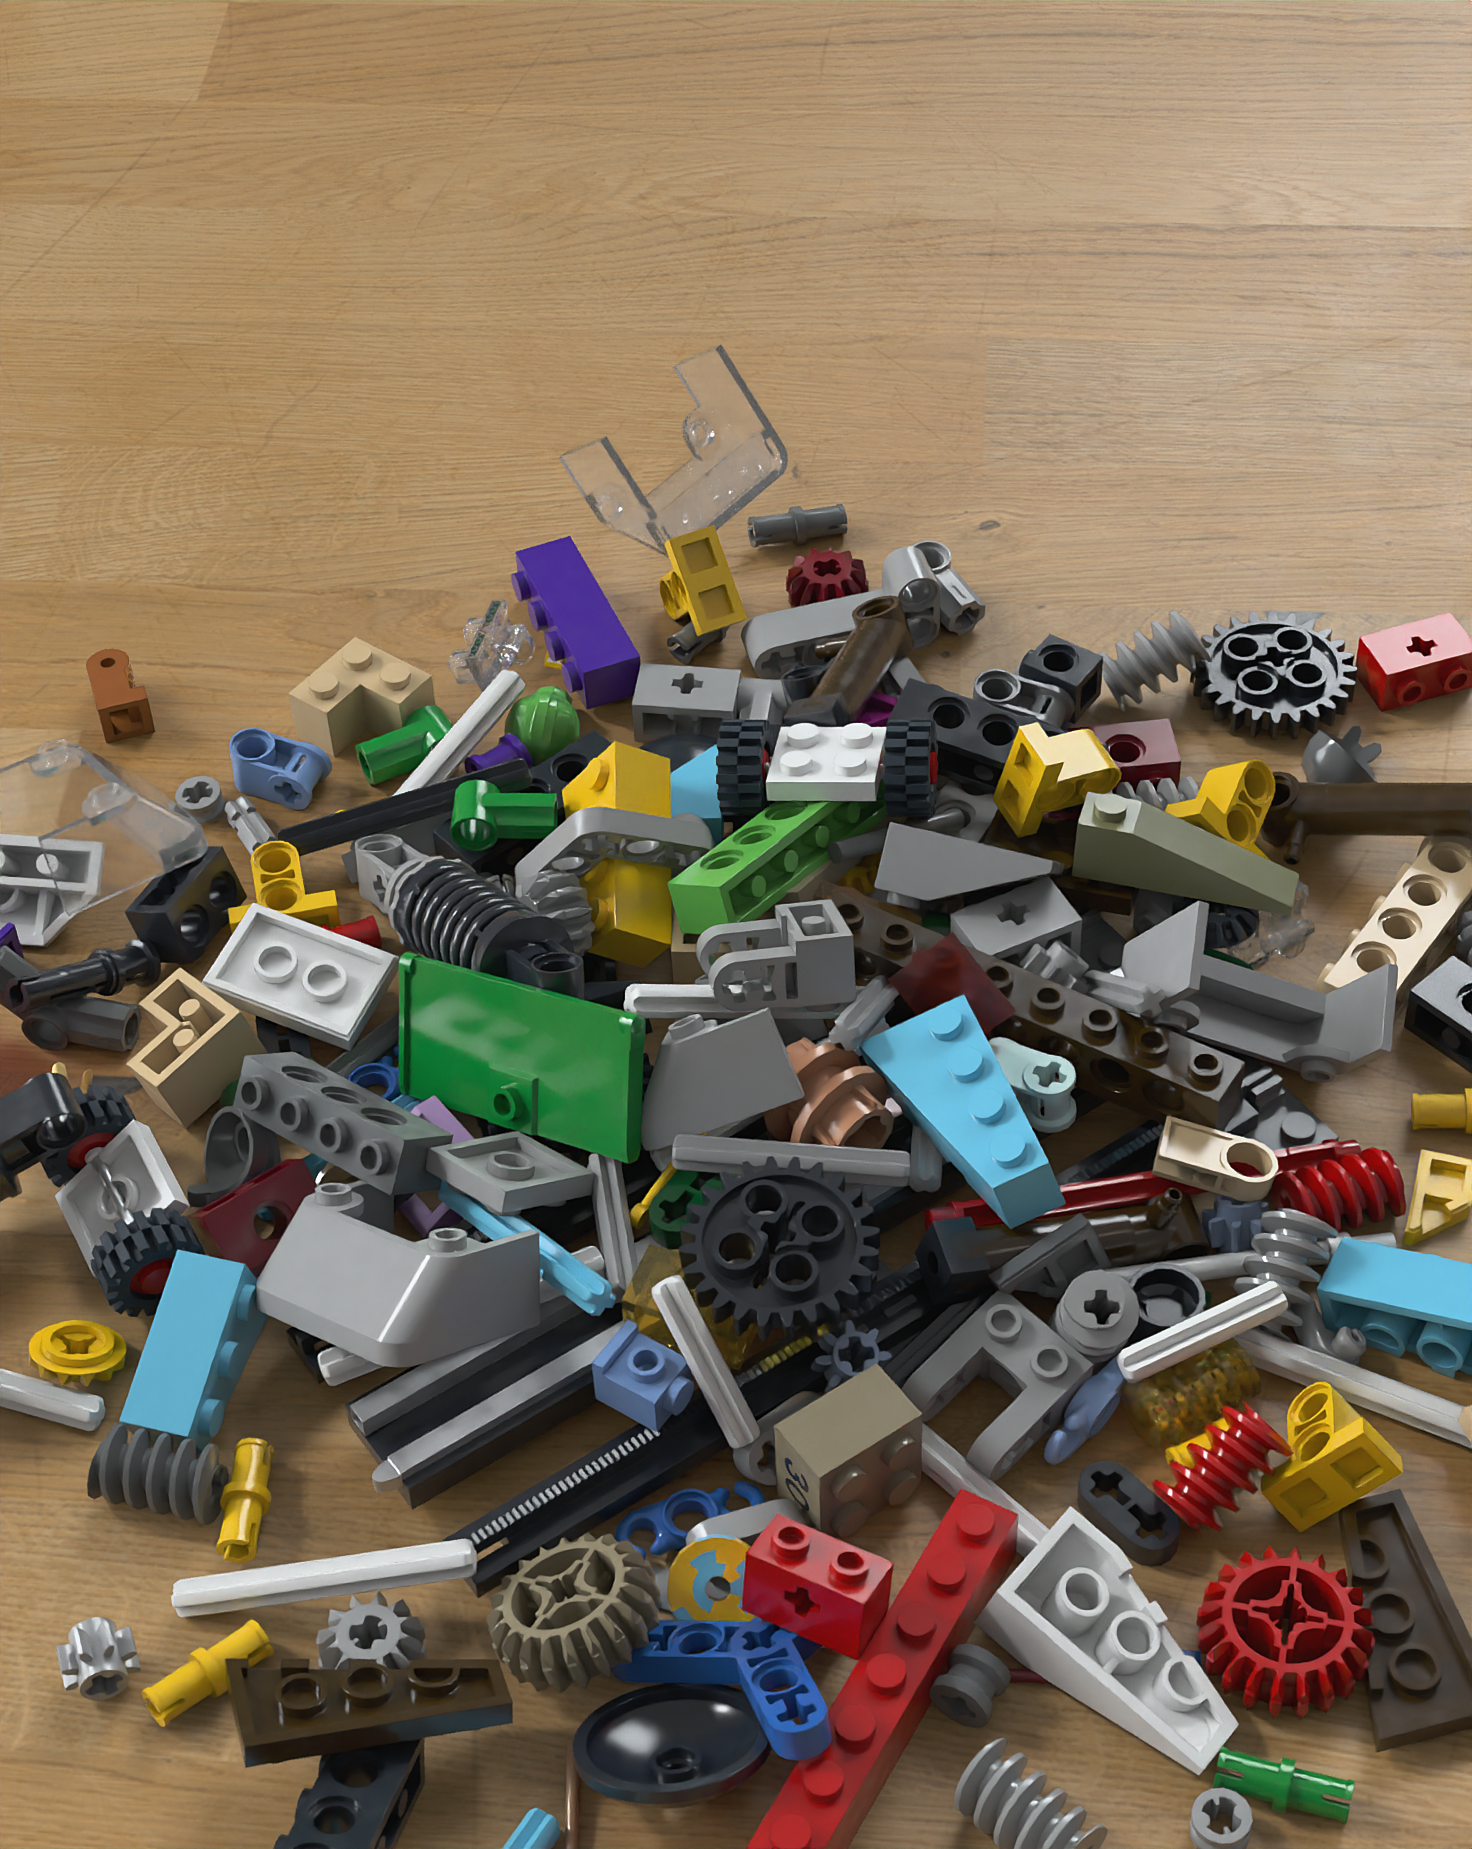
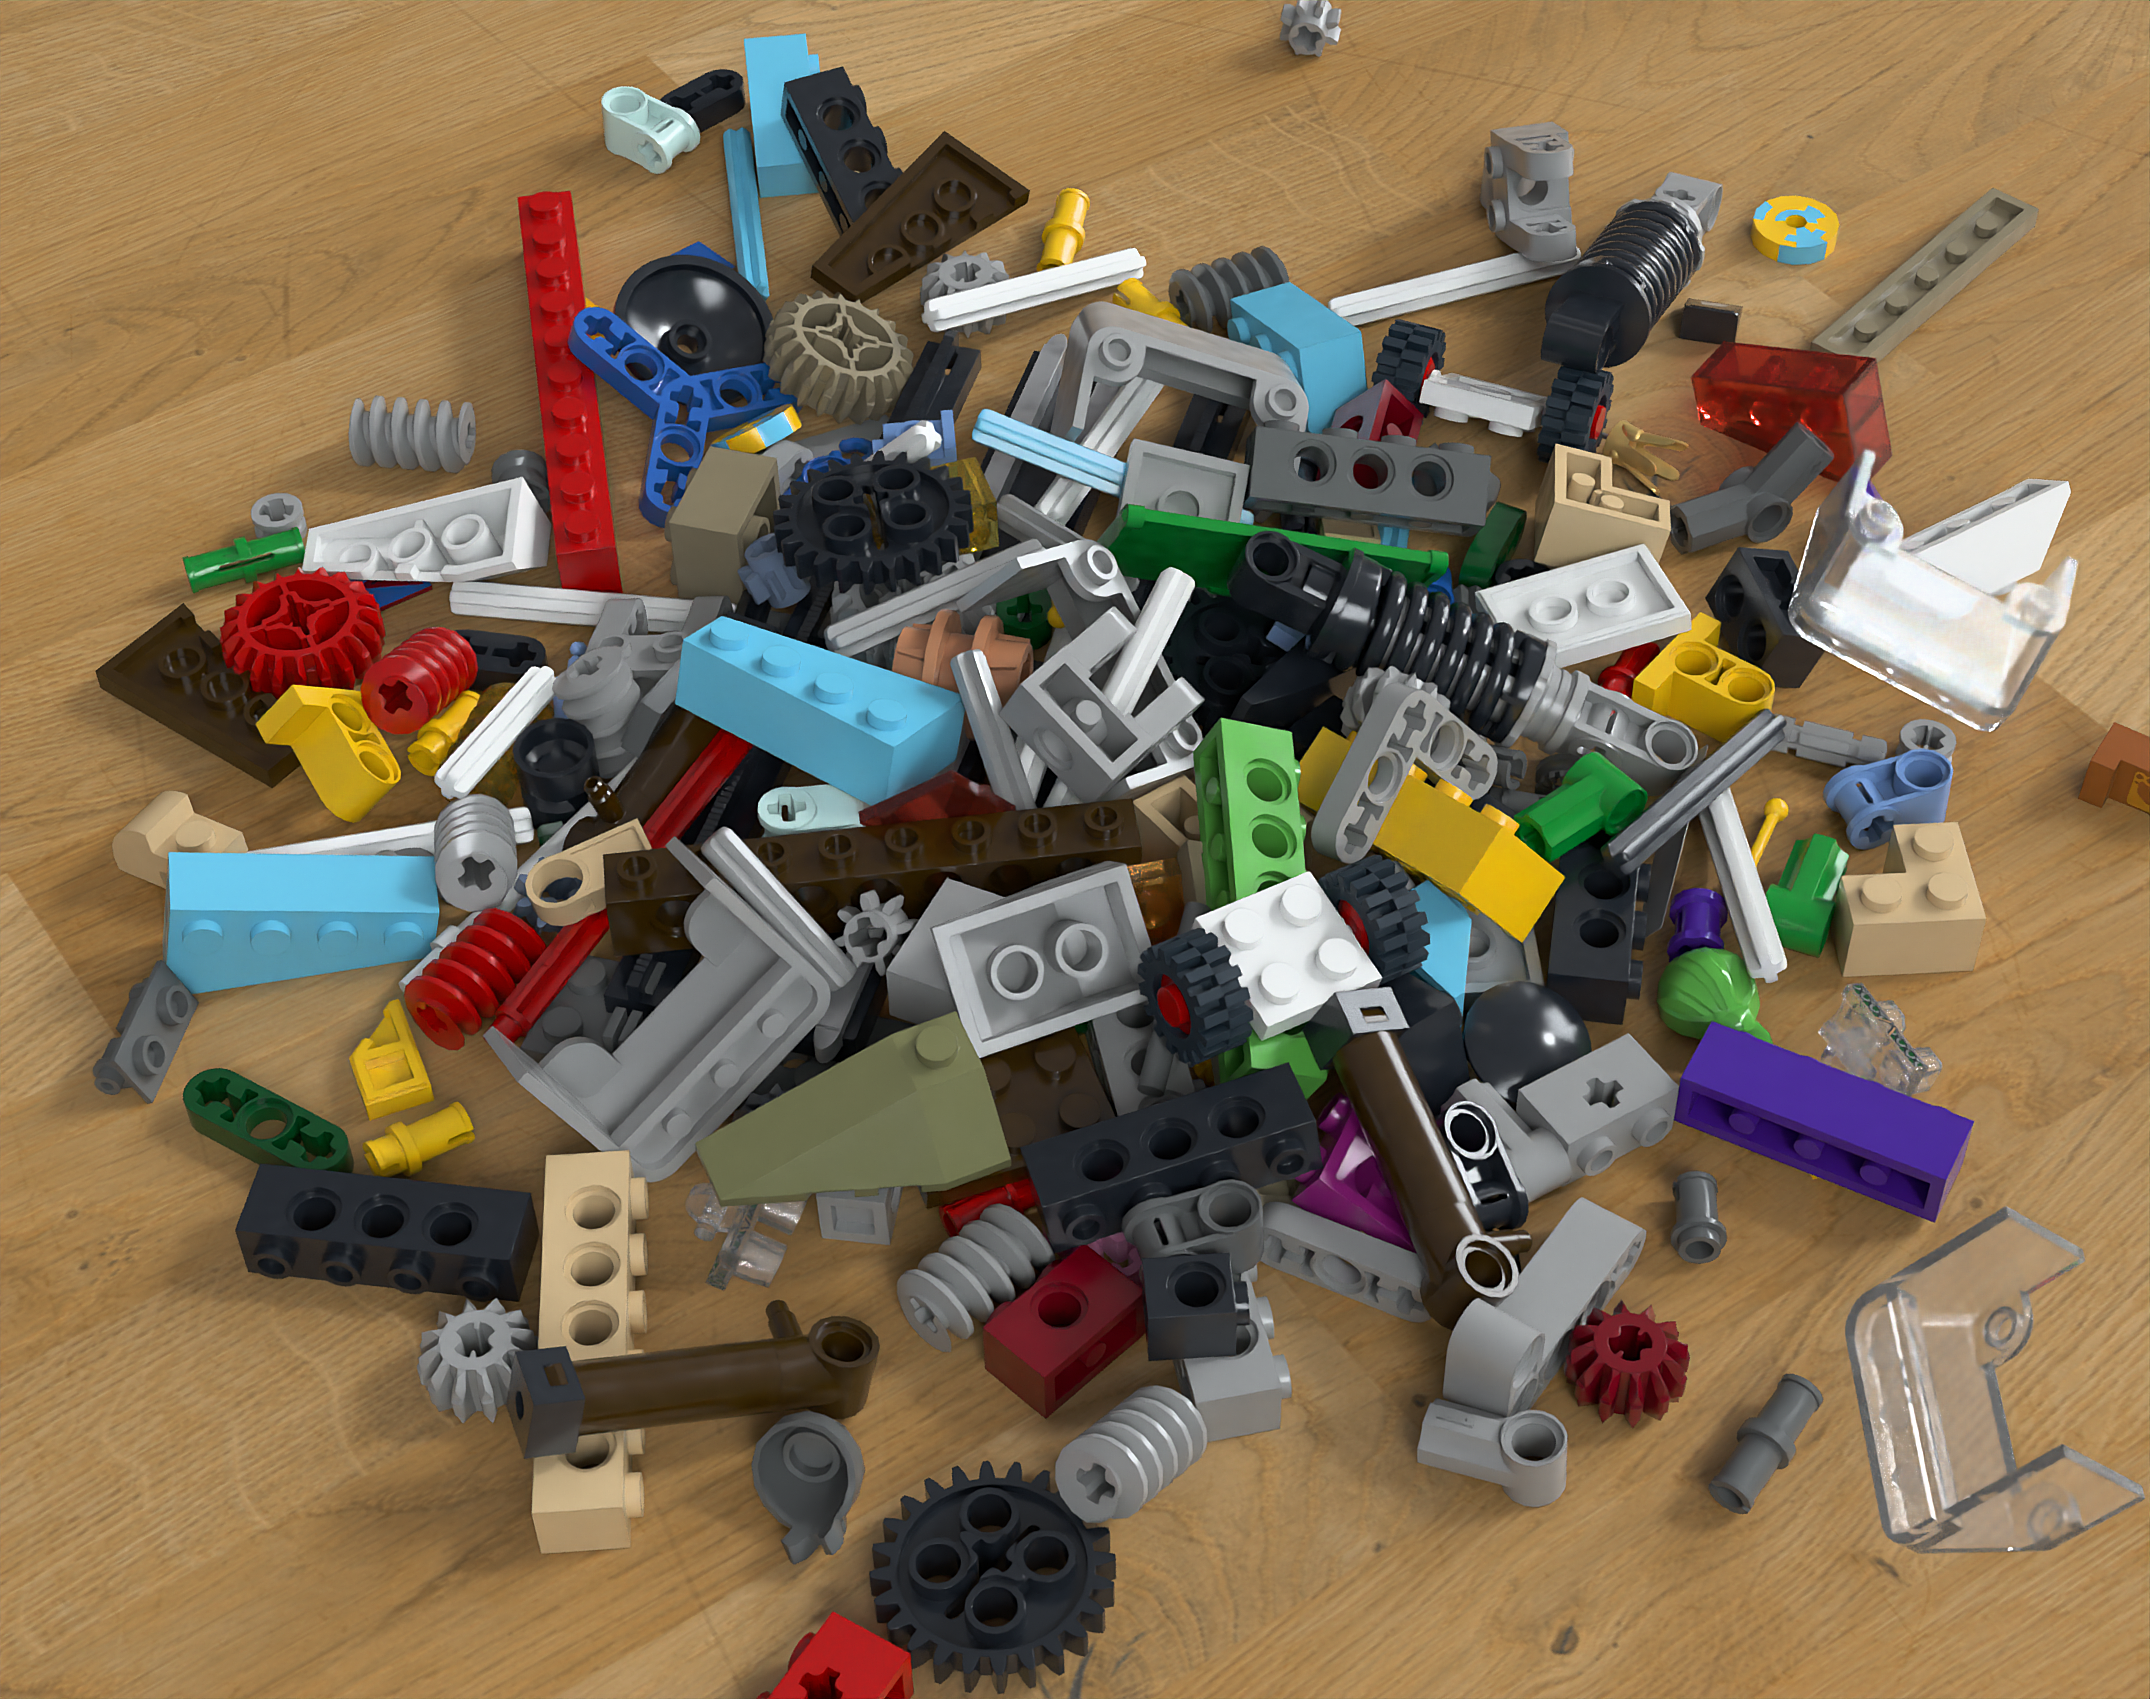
camera: 140 degrees right, 0 degrees up
(77, 1352) = (1373, 304): yellow gear -> none
(98, 1658) = (1138, 196): light grey gear -> none
(102, 973) = (1749, 521): black pin -> none
(700, 582) = (1736, 1222): yellow tile -> none
(816, 1586) = (658, 411): red brick -> none
(1051, 775) = (1047, 1090): yellow tile -> none
(1231, 803) = (866, 1258): yellow tile -> none

